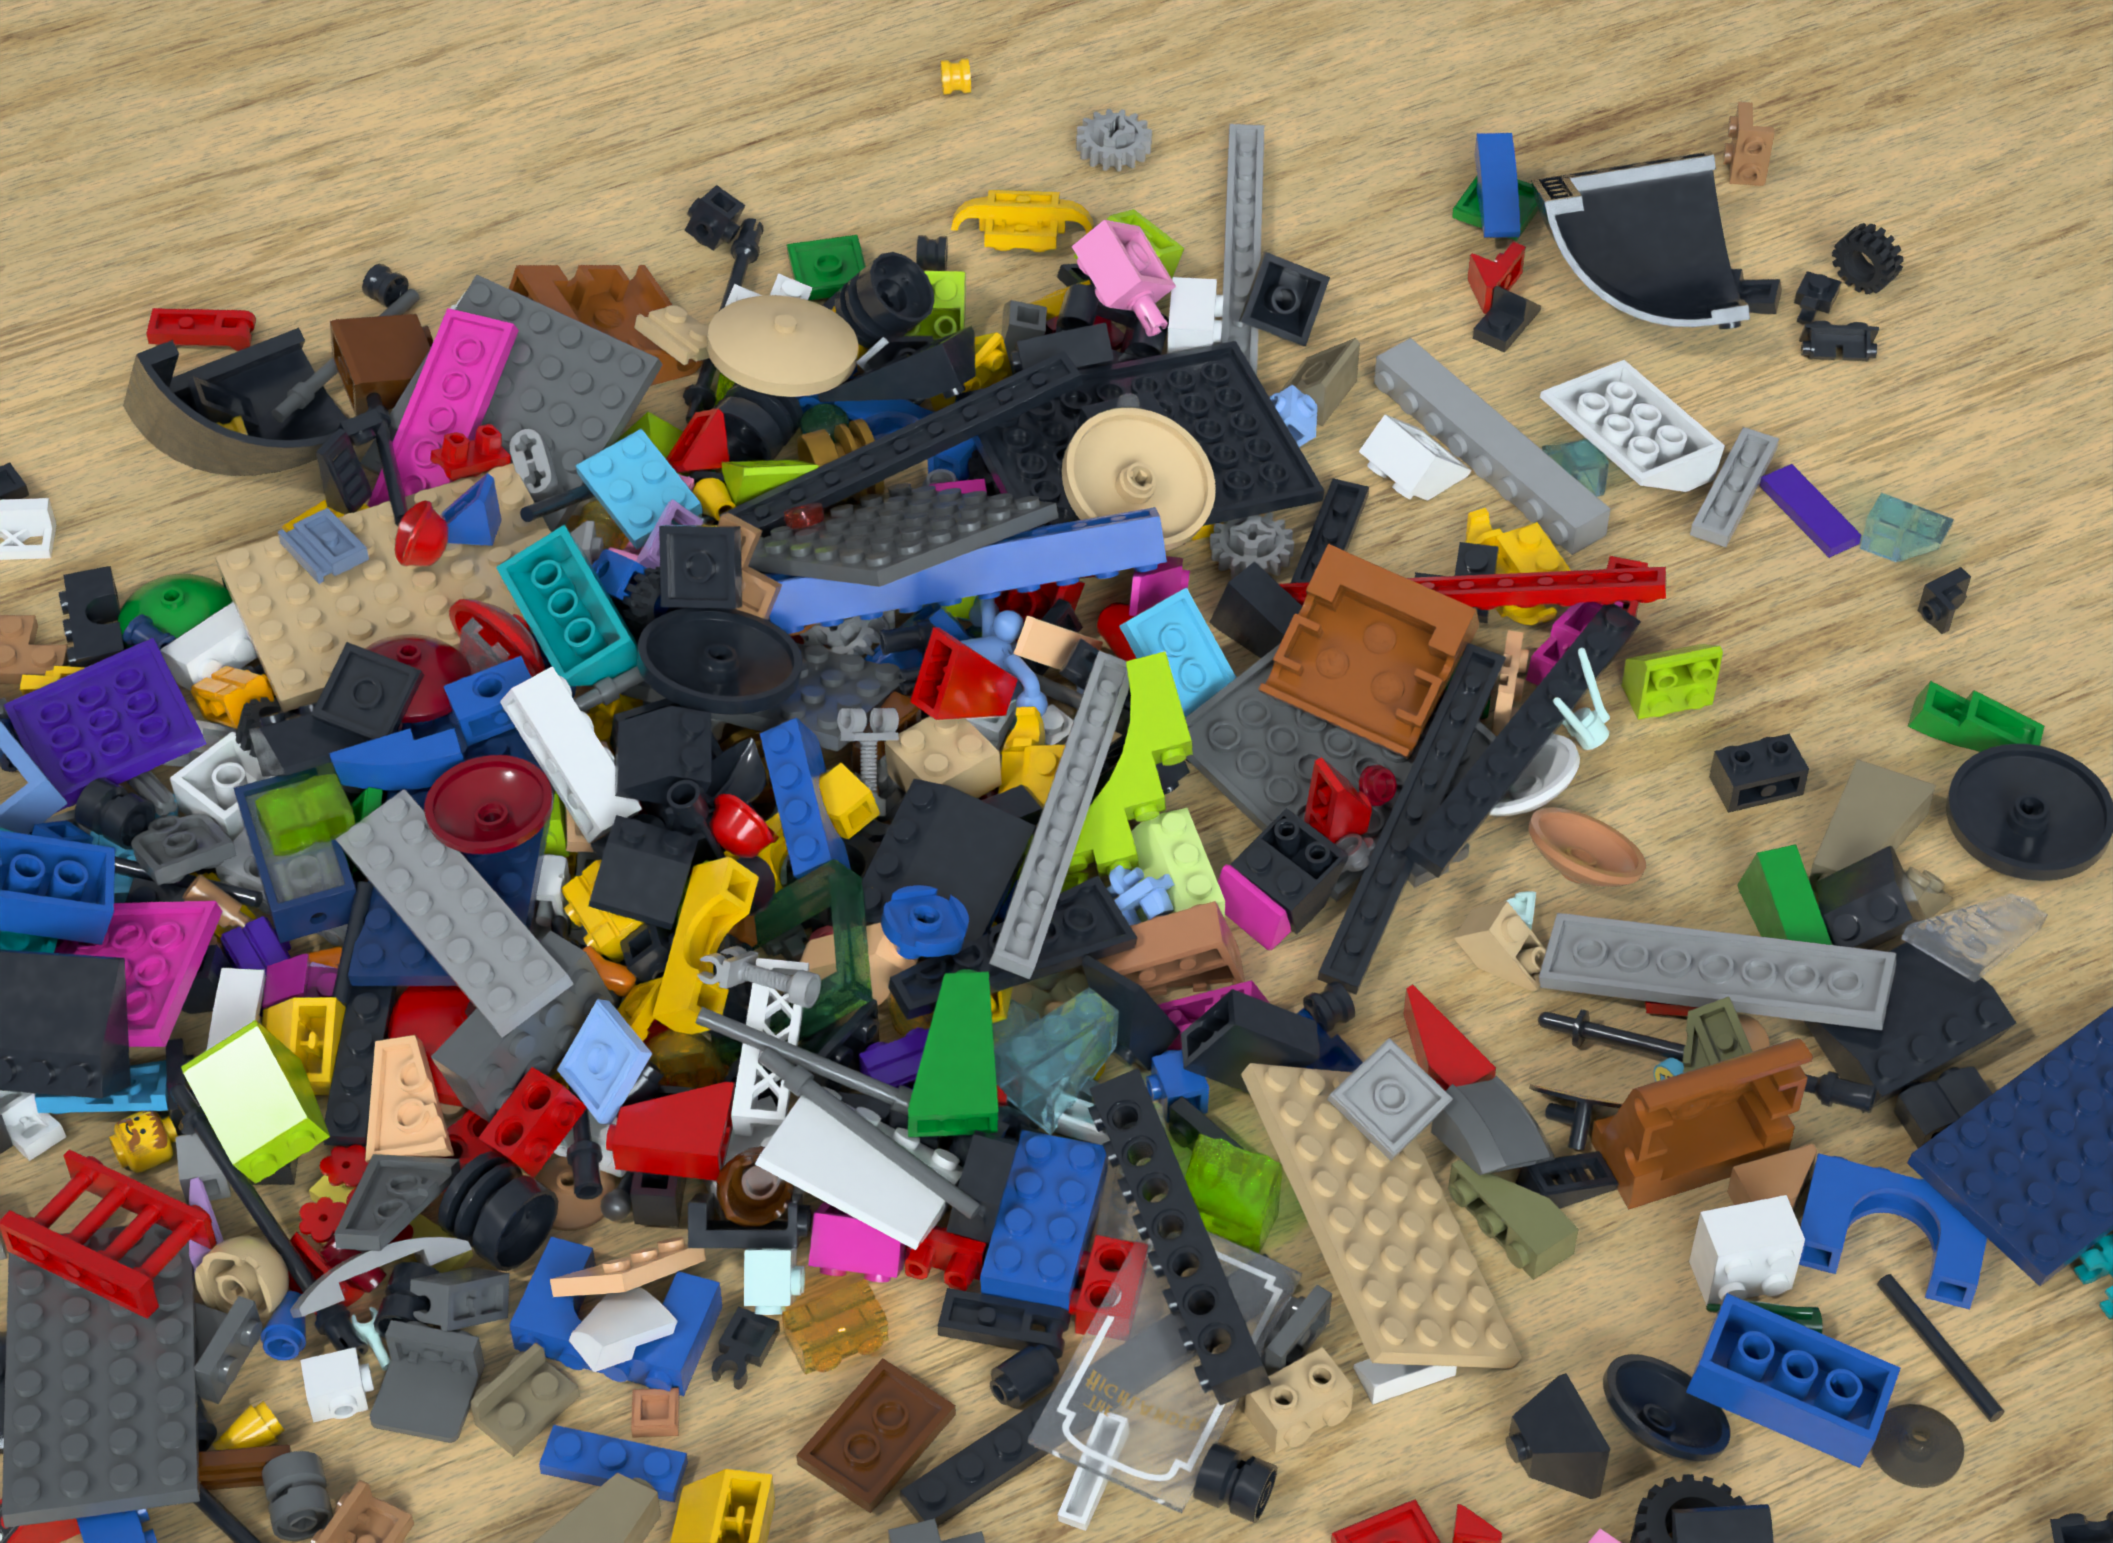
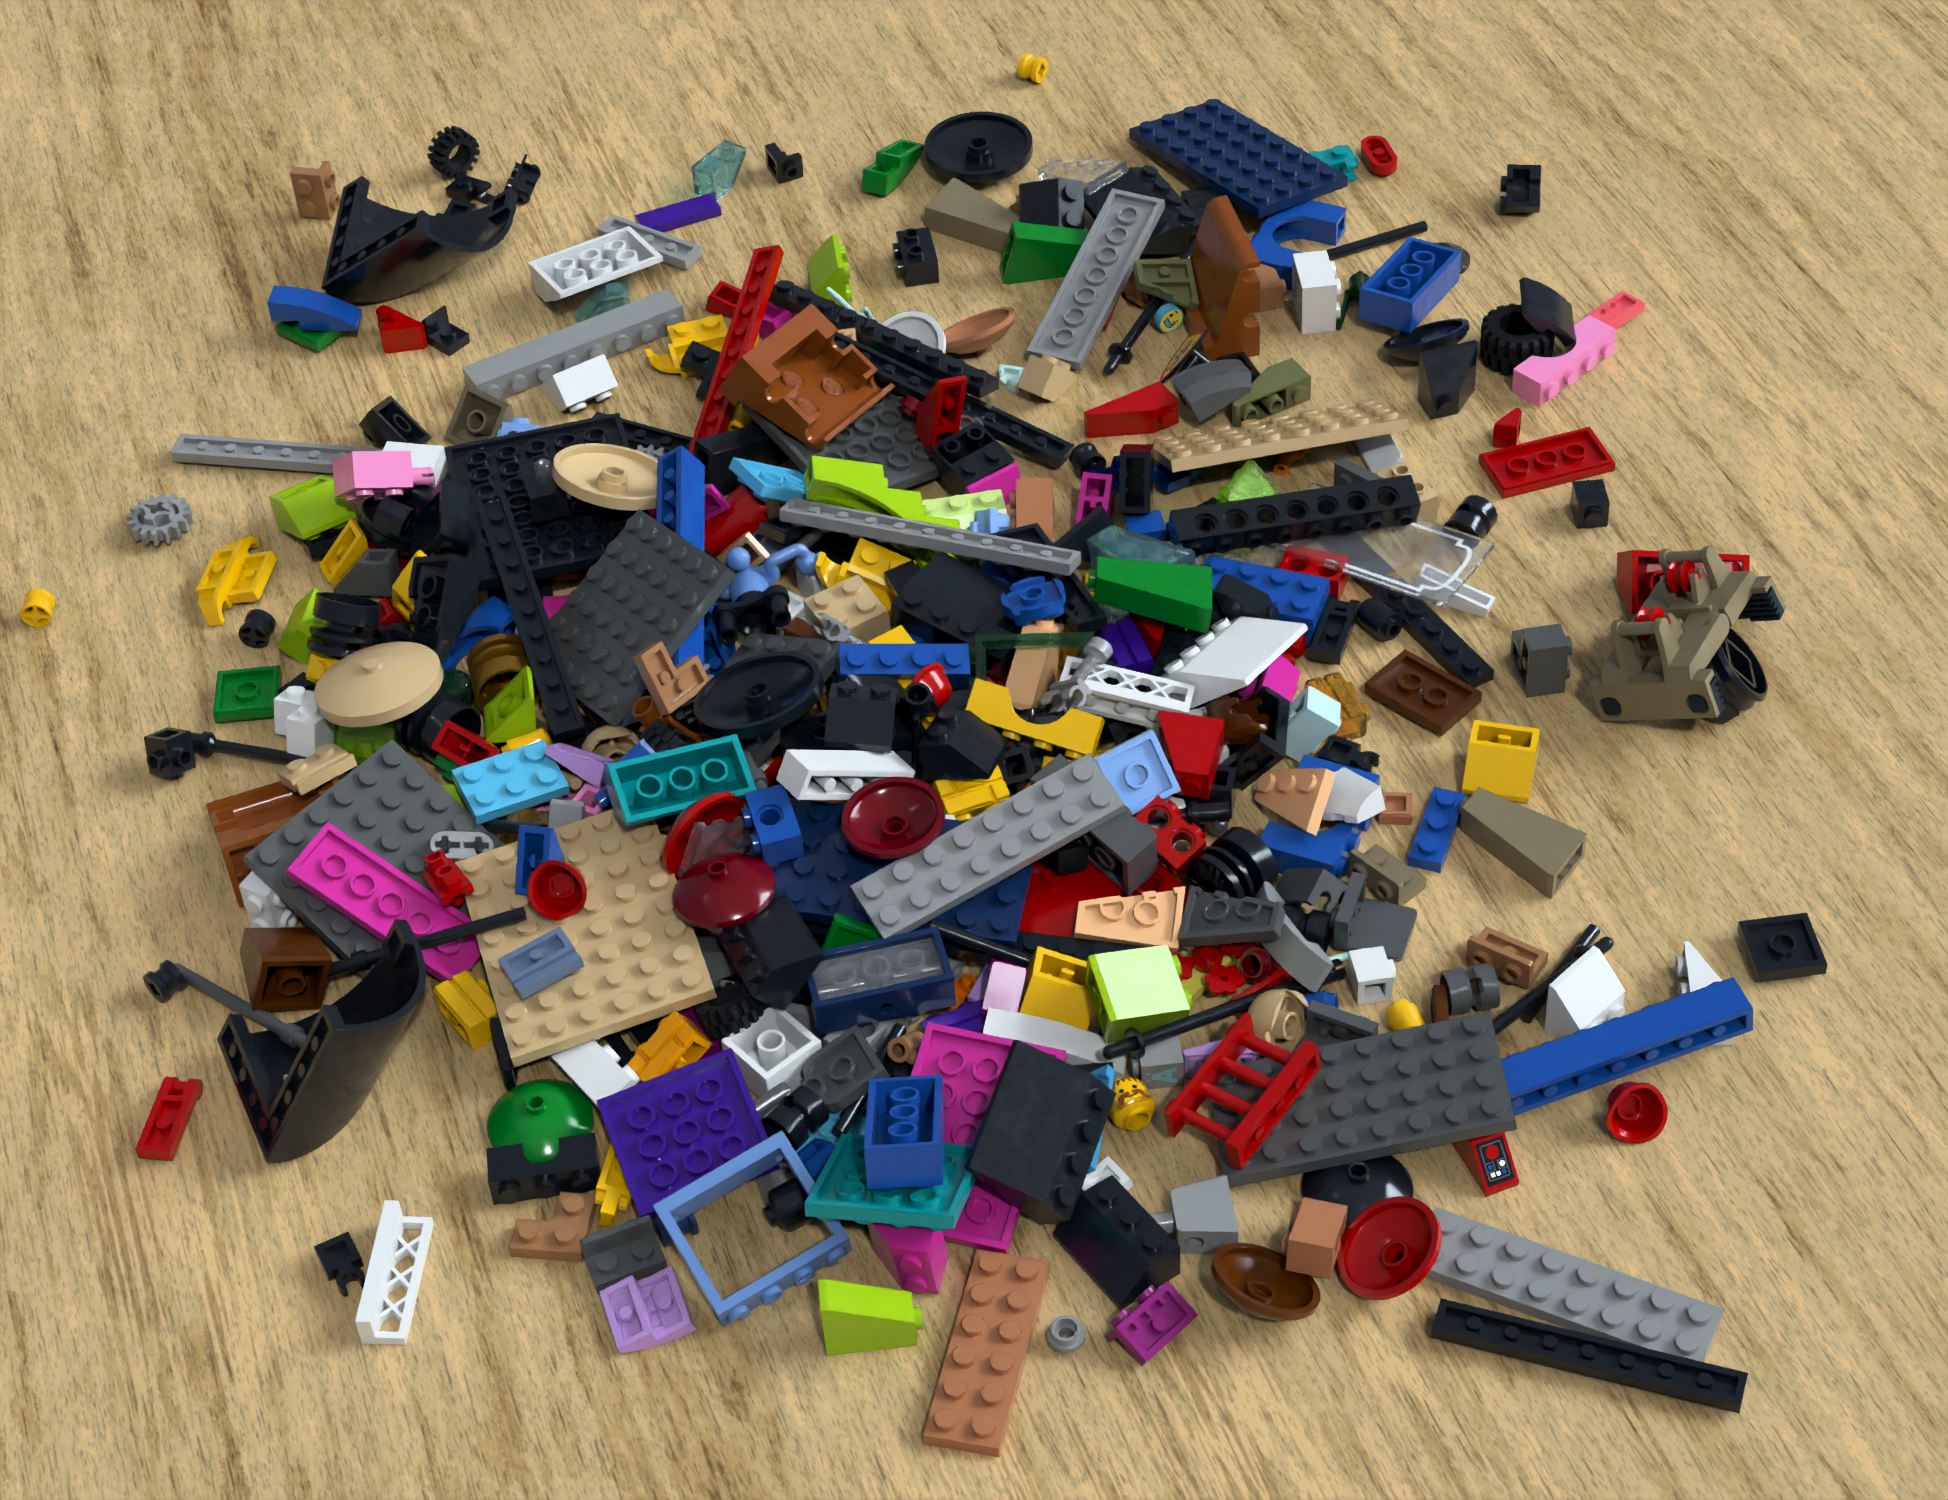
camera: 80 degrees left, 5 degrees down
(142, 629) = (581, 1118): dark blue bush -> none
(304, 814) = (865, 946): clear neon green brick -> none
(344, 478) = (443, 967): black slope -> none
(367, 693) = (755, 896): black tile -> none
(398, 761) = (822, 883): blue slope -> none
(700, 566) = (672, 688): black plate -> none
(801, 1082) = (1176, 661): dark grey bar -> none
(804, 515) = (583, 672): clear red tile -> none
(897, 1097) = (1172, 637): dark grey bar -> none
(960, 681) = (801, 574): red slope -> none
(1390, 1099) = (1195, 413): light grey tile -> none

